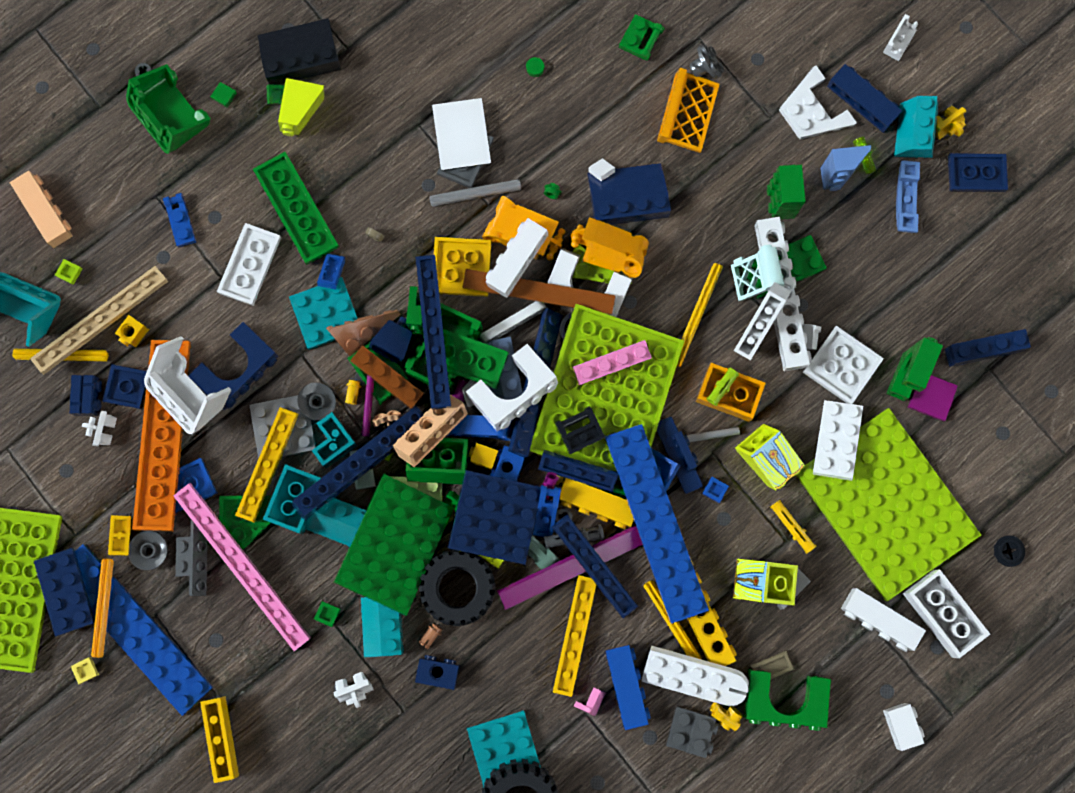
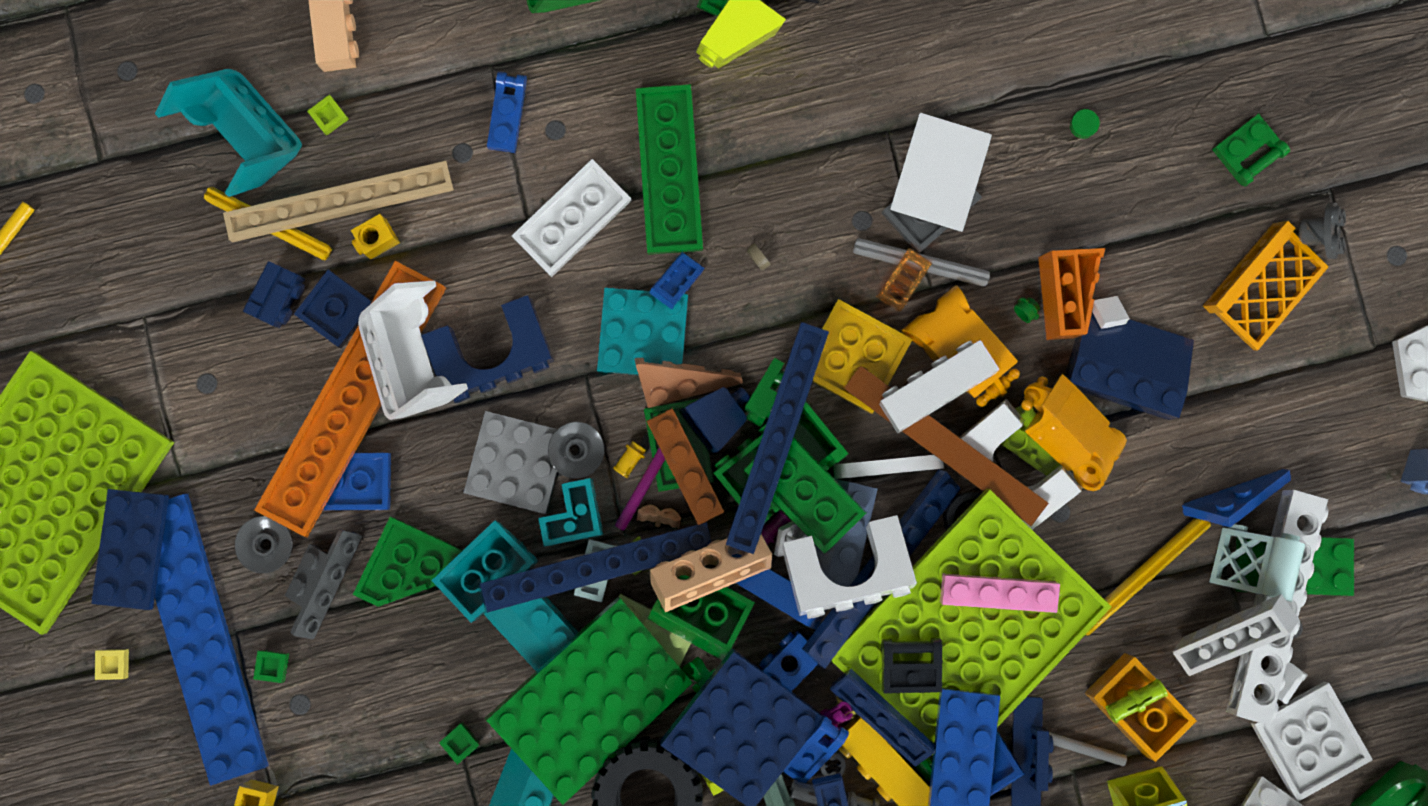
camera: 25 degrees right, 5 degrees up
(102, 608) = (169, 595): light orange axle -> none
(104, 420) = (268, 361): white hips -> none
(119, 535) = (235, 507): yellow hinge -> none
(186, 623) = (271, 666): none -> green plate
(242, 566) = (376, 628): bright pink plate -> none
(267, 464) = (471, 506): yellow tile -> none
(464, 223) = (893, 302): none -> clear orange slope
(483, 456) = (764, 632): yellow brick -> none
(570, 167) = (1068, 290): none -> orange wedge
(730, 244) = (1234, 503): none -> blue wing
(786, 192) = (1355, 469): green brick -> none

